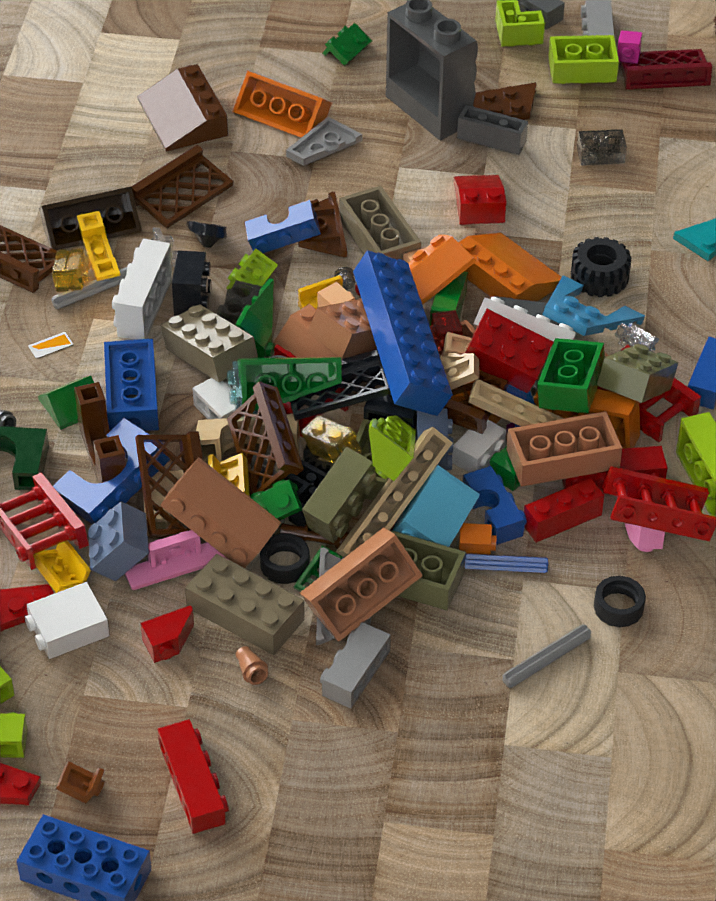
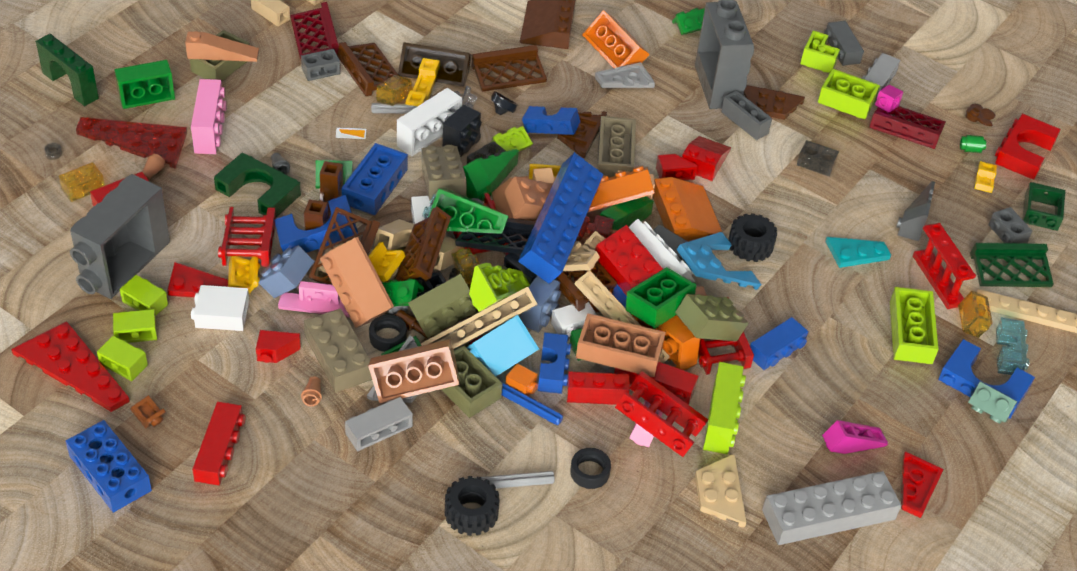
camera: 25 degrees right, 0 degrees up
(459, 222) = (675, 166): none -> red slope
(527, 720) = (472, 491): none -> black tyre
(634, 335) = (740, 297): clear hips -> none

